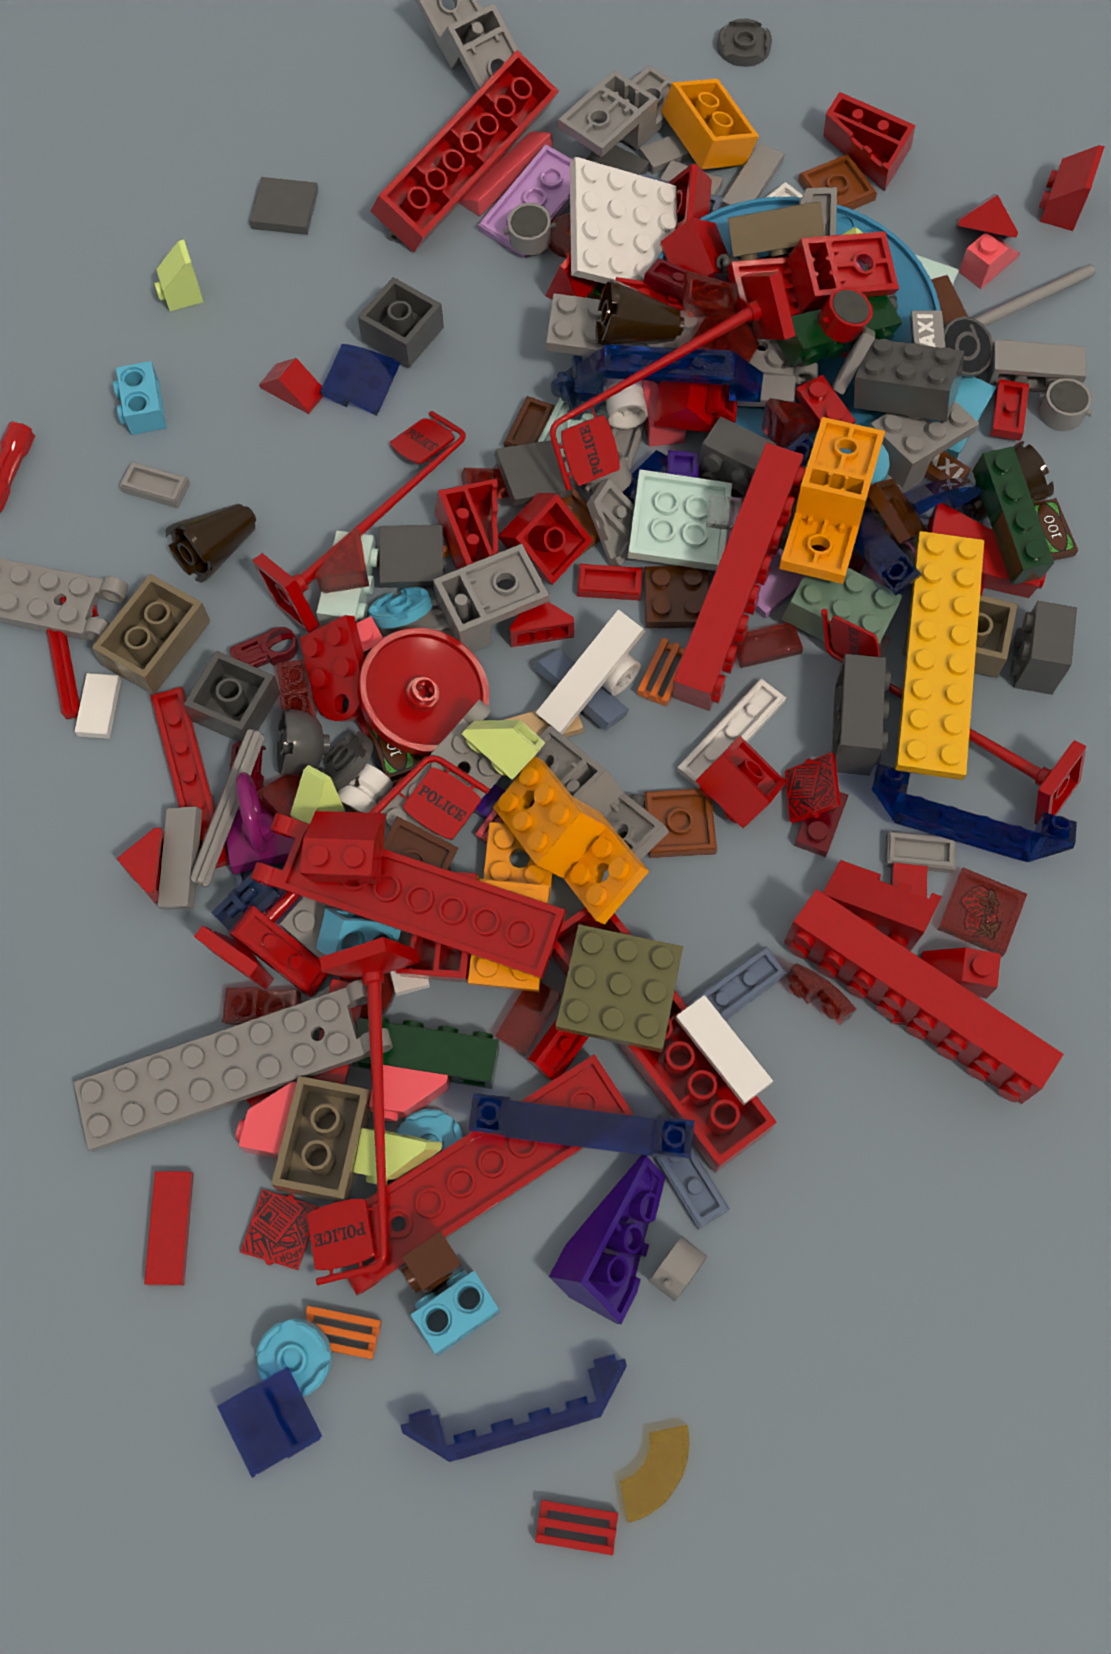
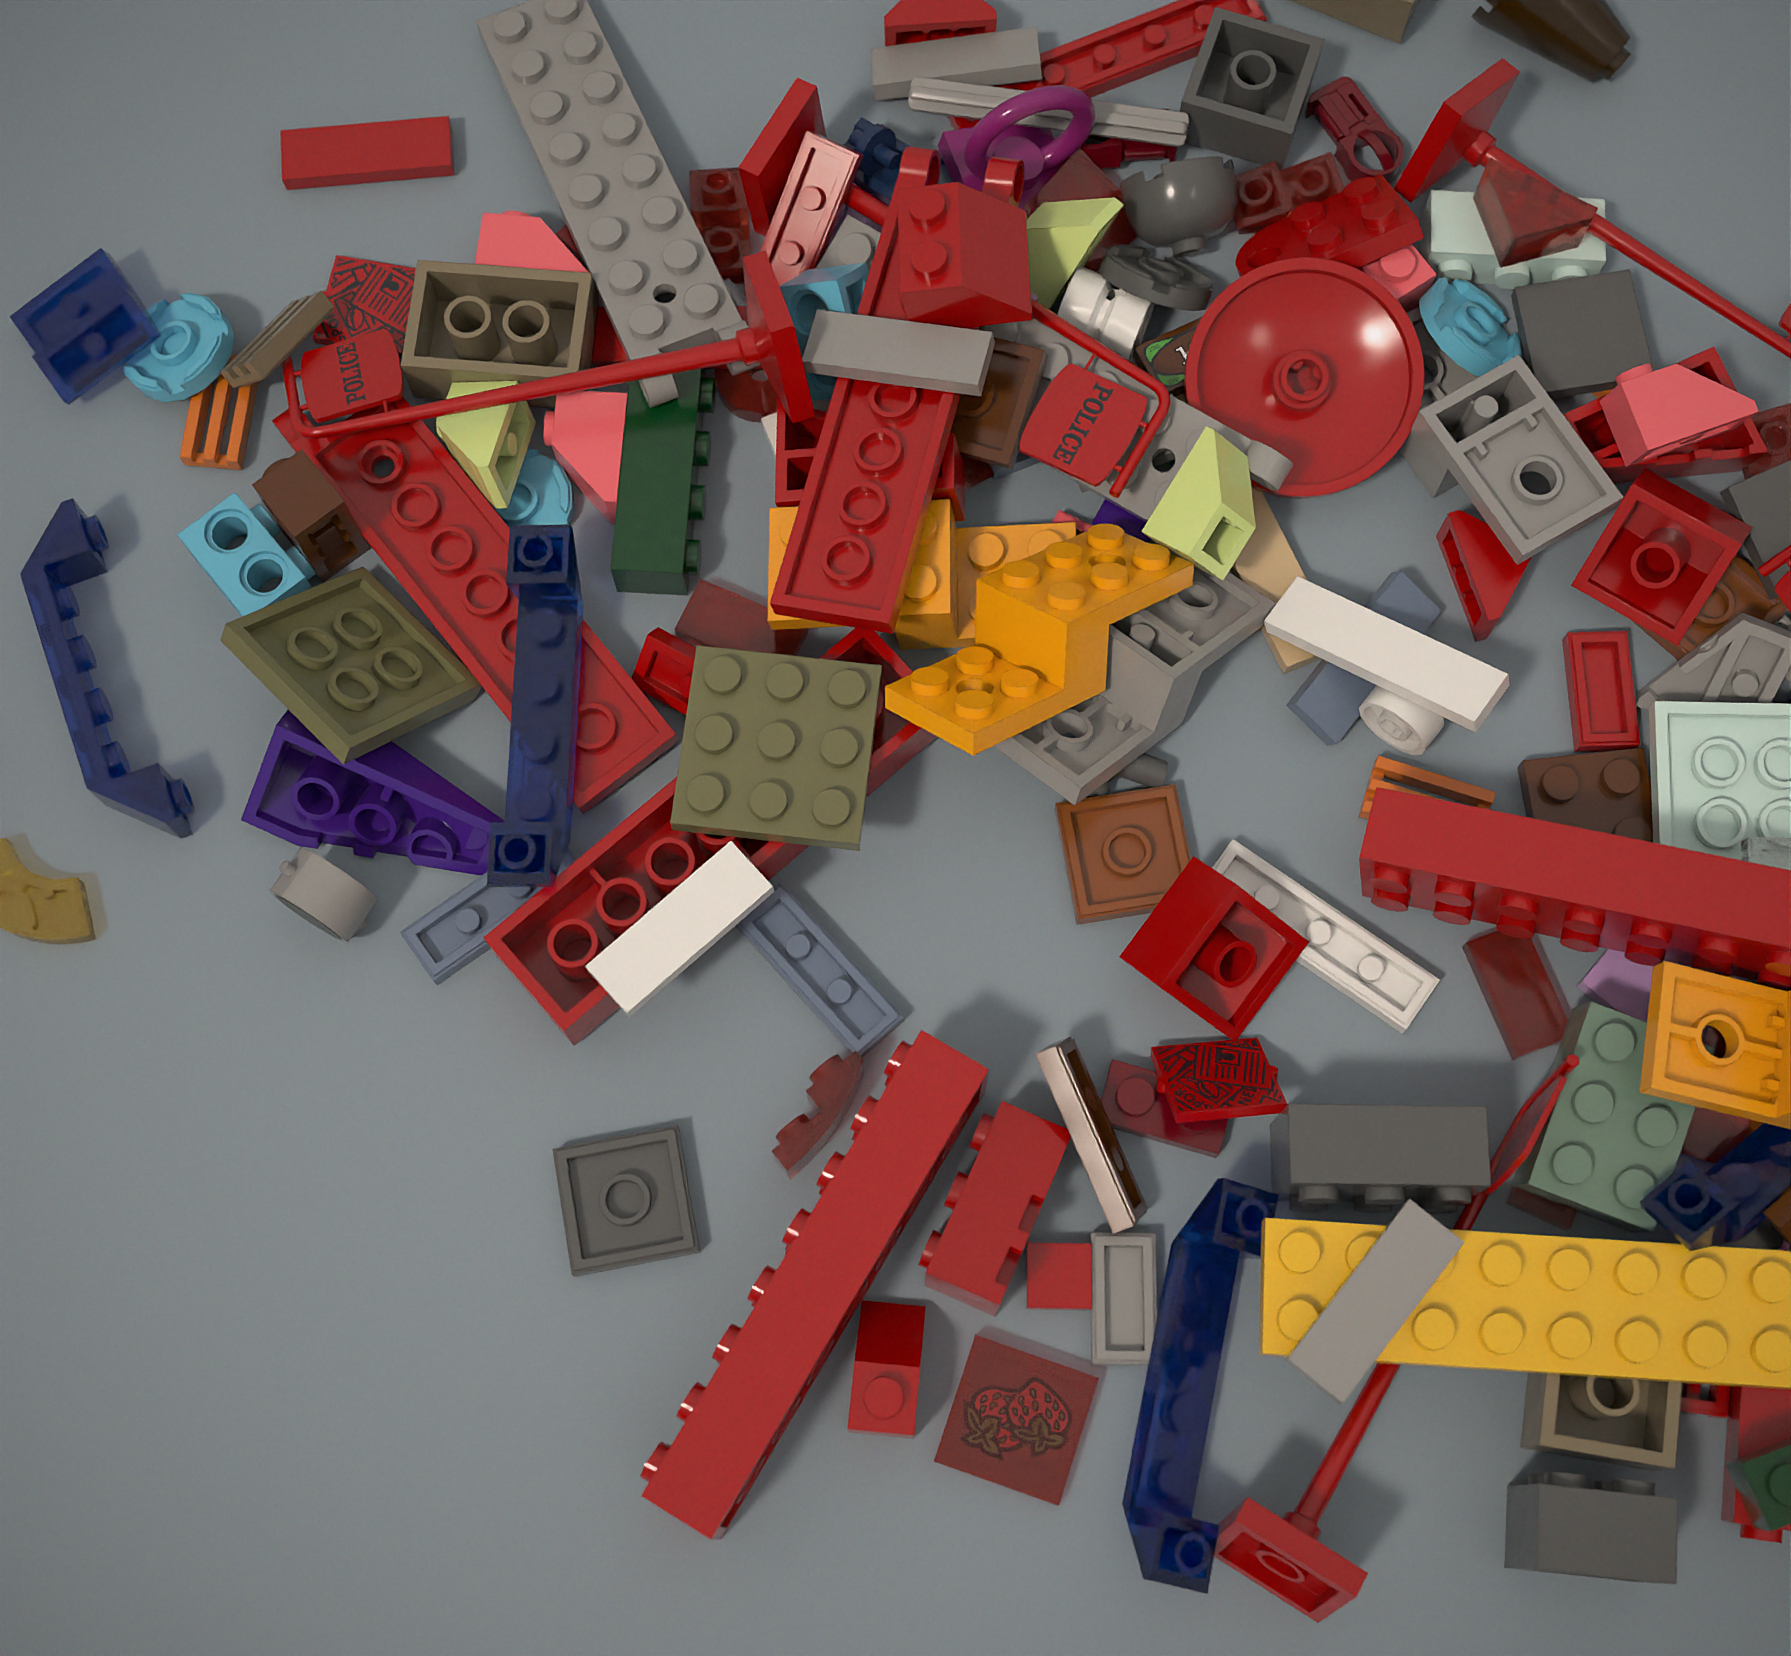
camera: 85 degrees right, 5 degrees up
(303, 1286) = (278, 340): none -> dark tan tile
(394, 889) = (898, 352): none -> light grey tile
(477, 515) = (1669, 410): none -> coral slope
(536, 1242) = (351, 663): none -> olive plate
(839, 851) = (1092, 1134): none -> tile
(861, 1106) = (625, 1201): none -> dark grey tile
(945, 716) = (1374, 1301): none -> light grey tile

